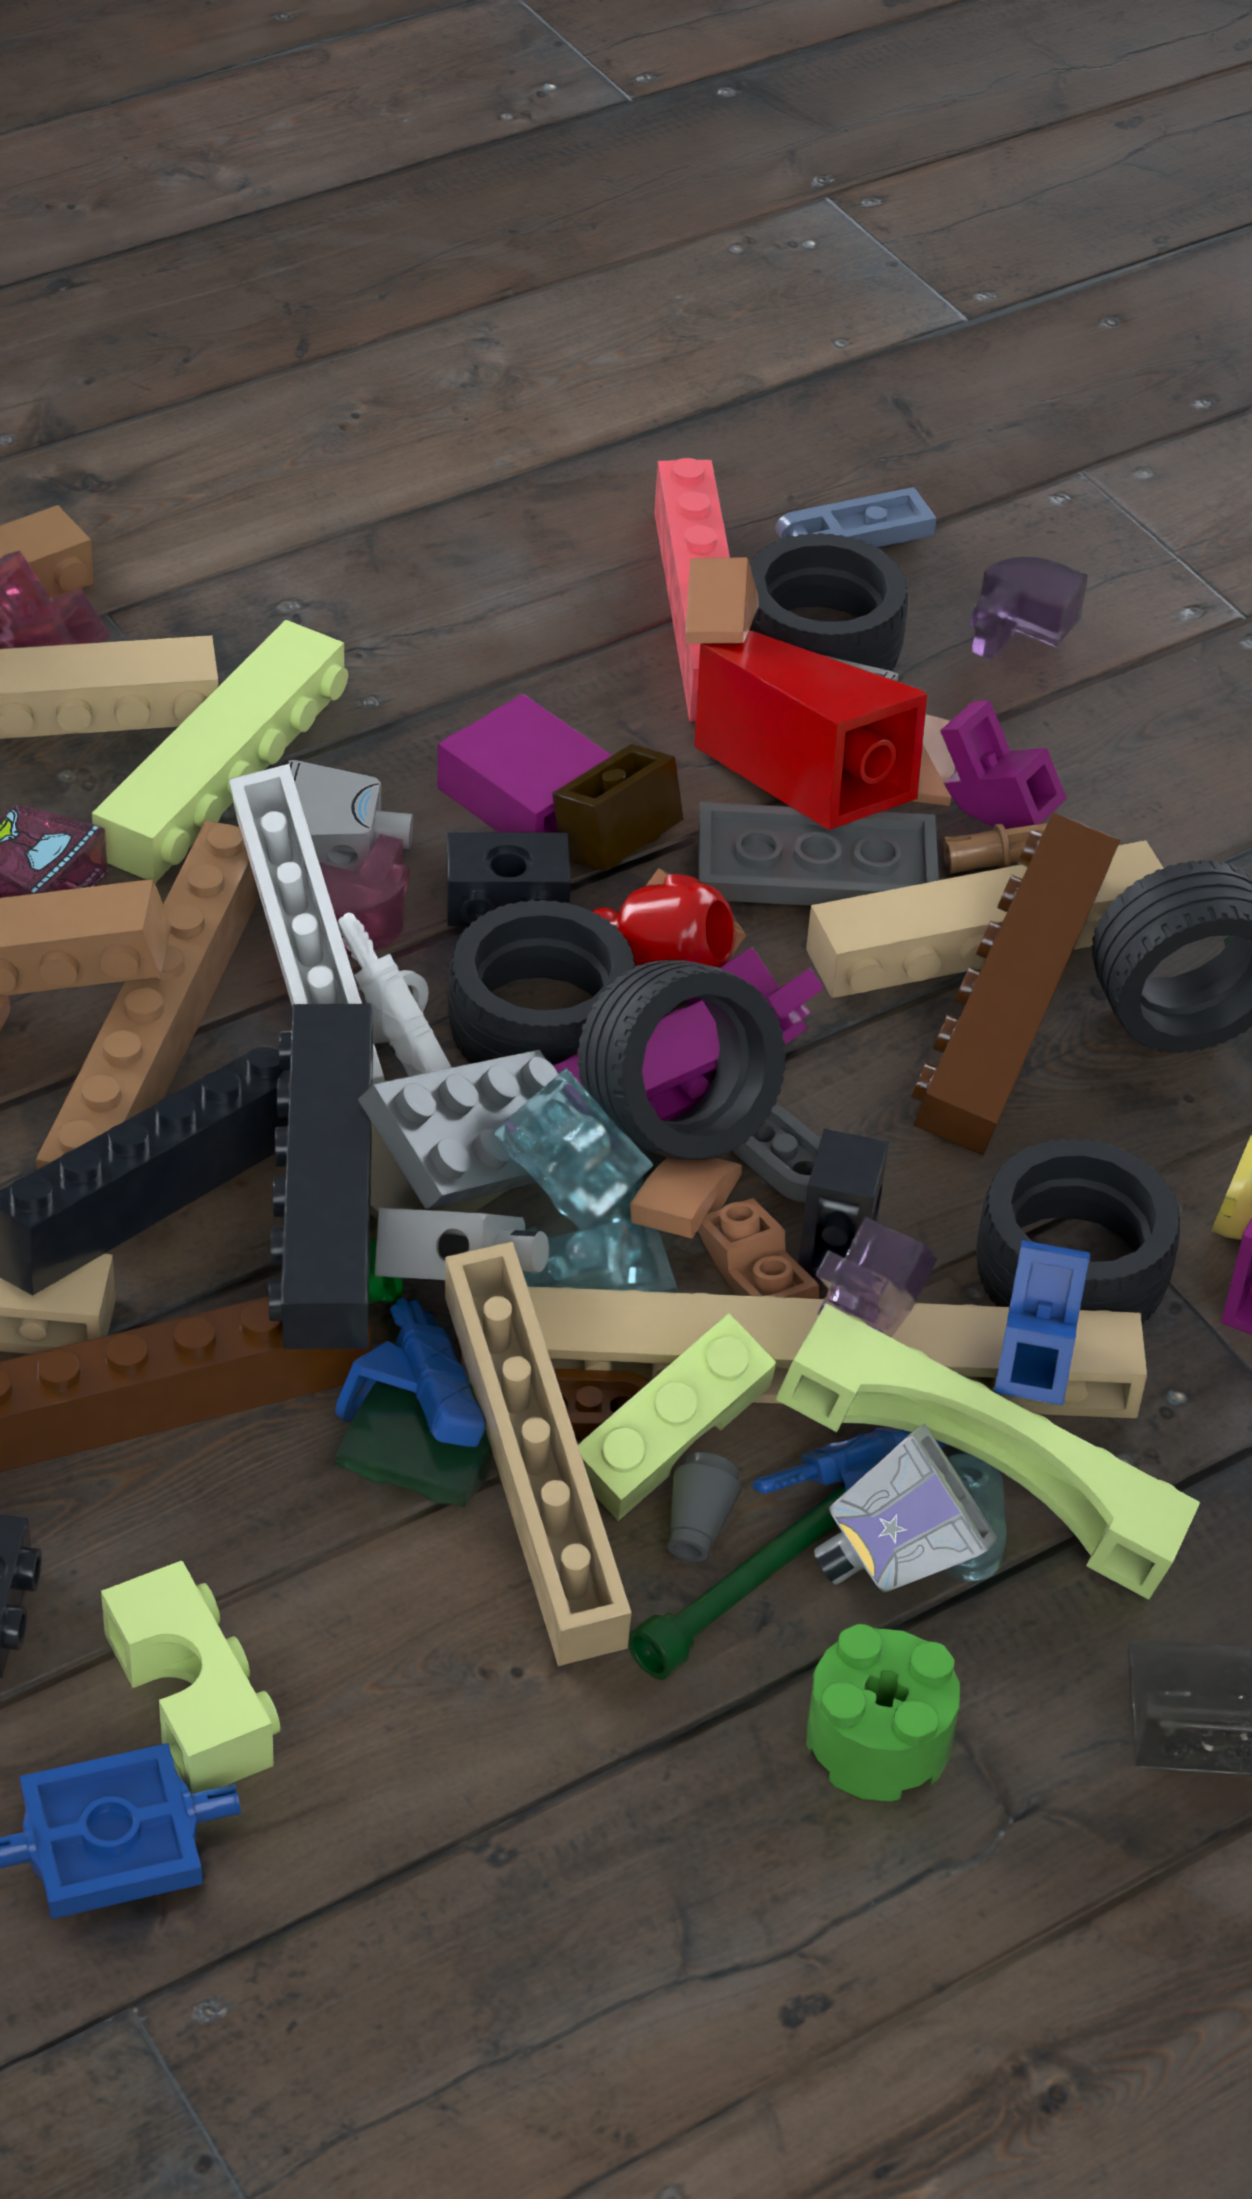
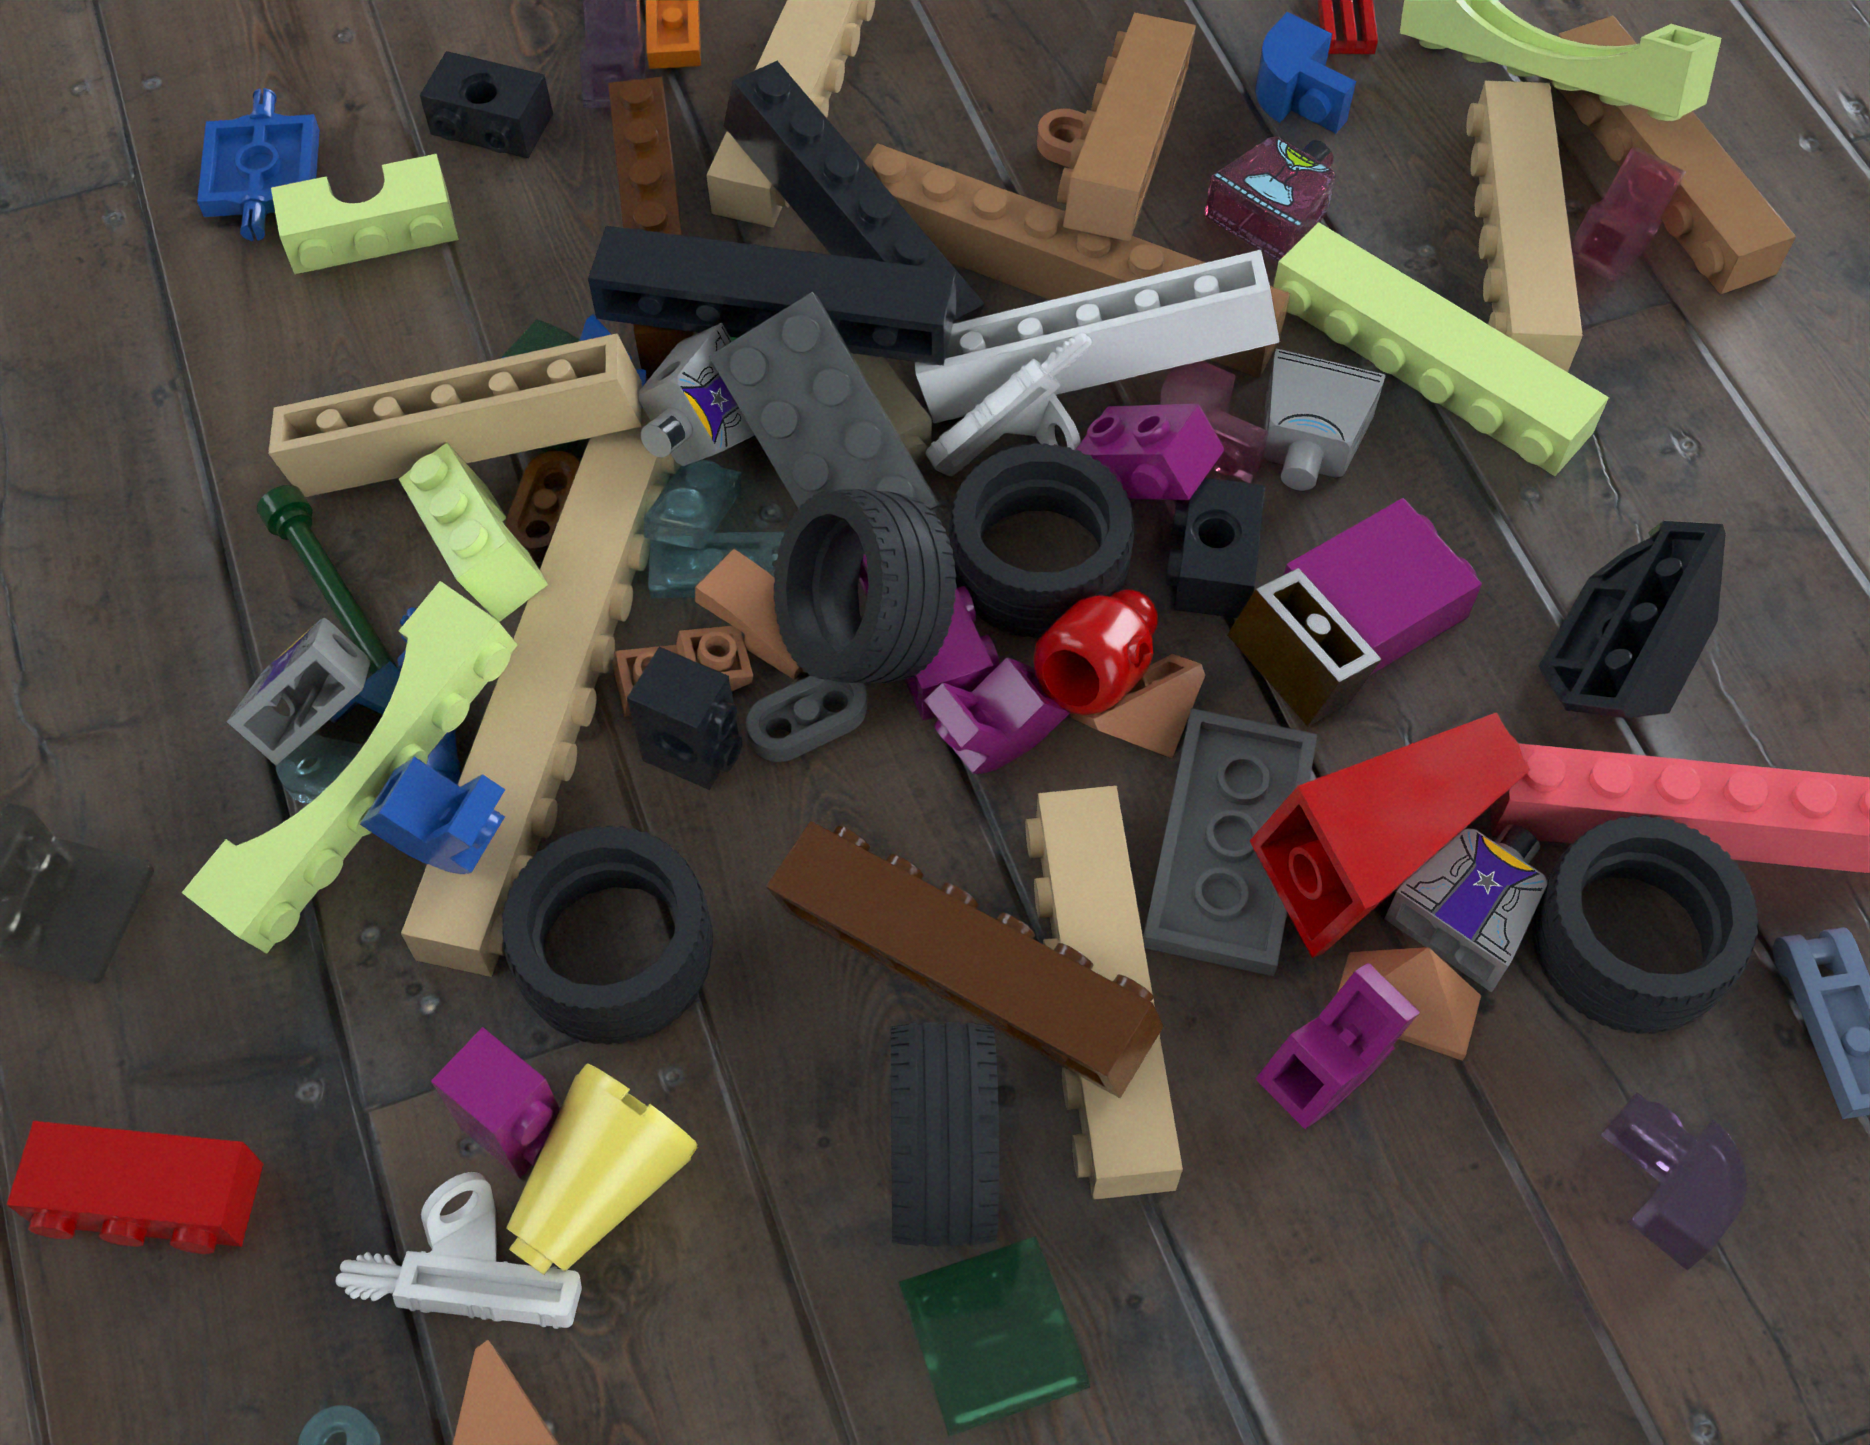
camera: 105 degrees right, 15 degrees up
(428, 910) = (1154, 448): none -> magenta brick
(534, 616) = (1640, 624): none -> black wedge
(573, 1150) = (766, 478): clear light blue plate -> none
(700, 1504) = (409, 564): dark grey cone -> none
(720, 600) = (1558, 740): nougat slope -> none
(877, 1276) = (537, 689): clear purple brick -> none
(883, 1712) = (142, 639): bright green brick -> none
(986, 848) = (1228, 1035): medium nougat axle -> none

